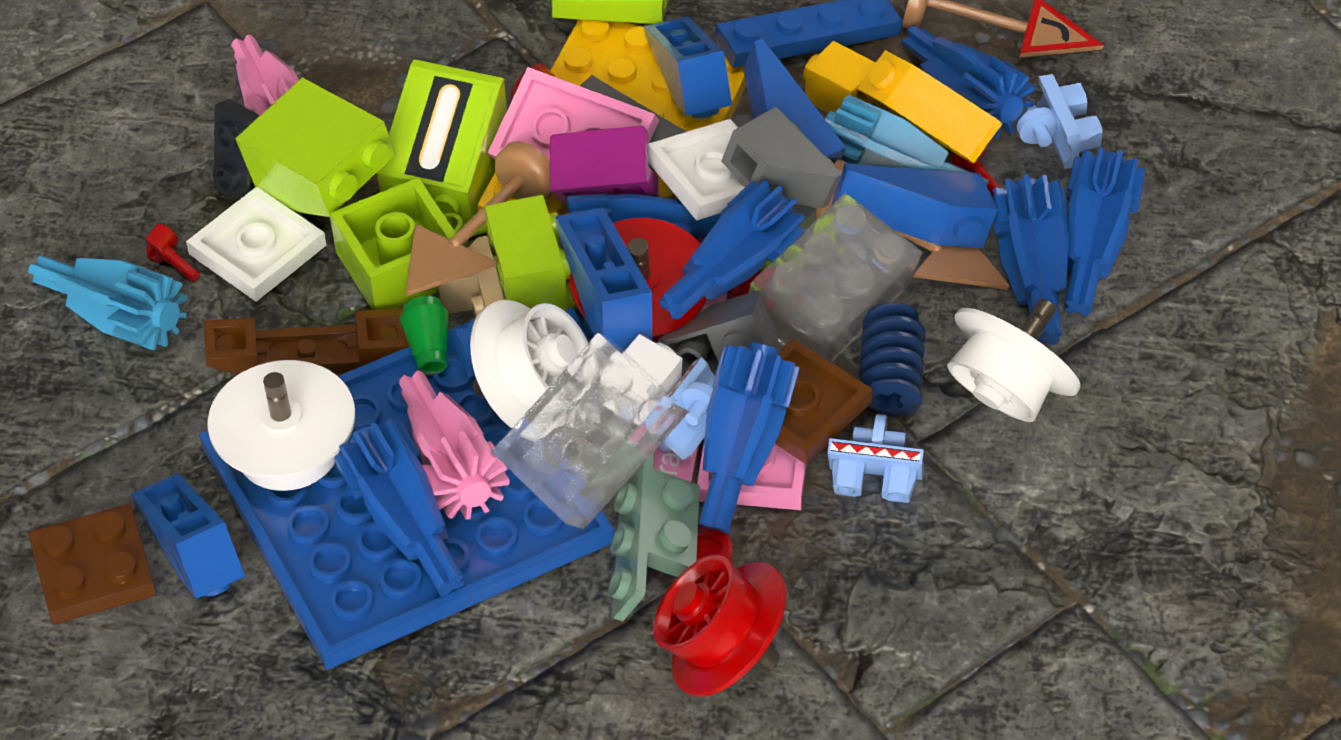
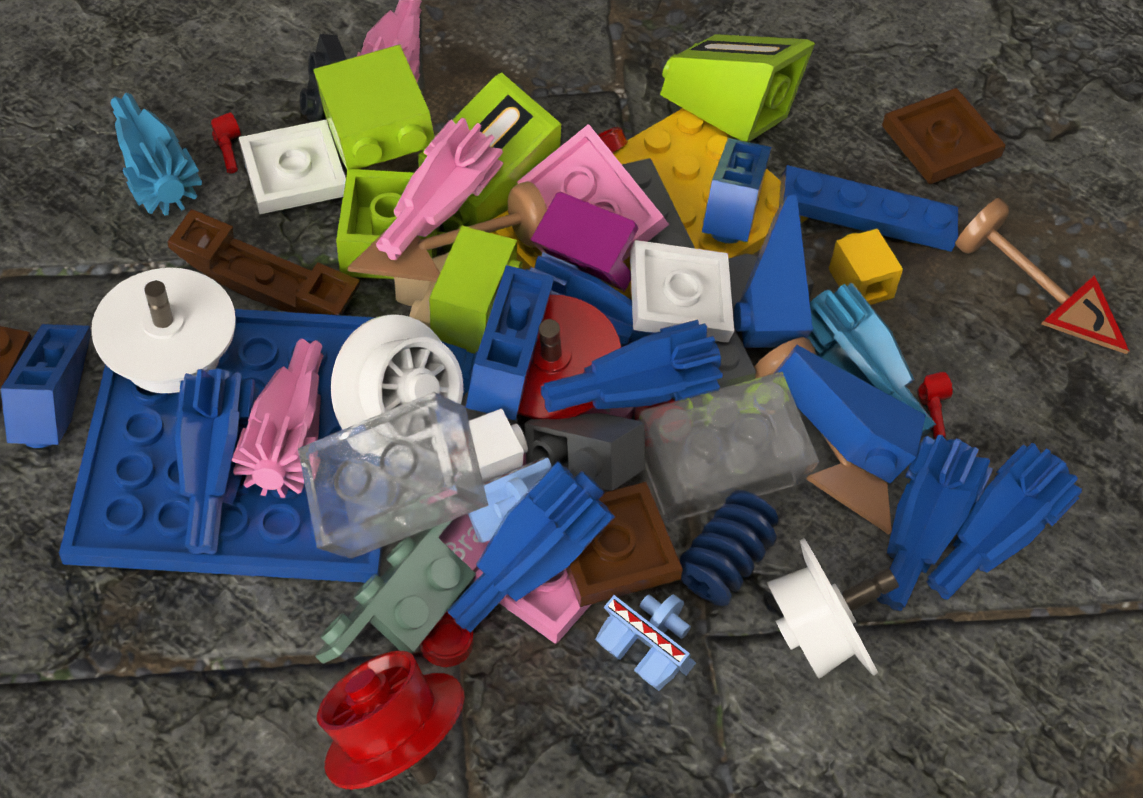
camera: 25 degrees right, 5 degrees up
(426, 331) = (352, 306): green cone -> none
(438, 178) = (455, 167): none -> bright pink piece
(779, 152) = (736, 312): dark grey slope -> none
(929, 106) = (919, 330): yellow slope -> none
(974, 75) = (979, 327): blue piece -> none
(1055, 123) = (1032, 399): light blue hips -> none

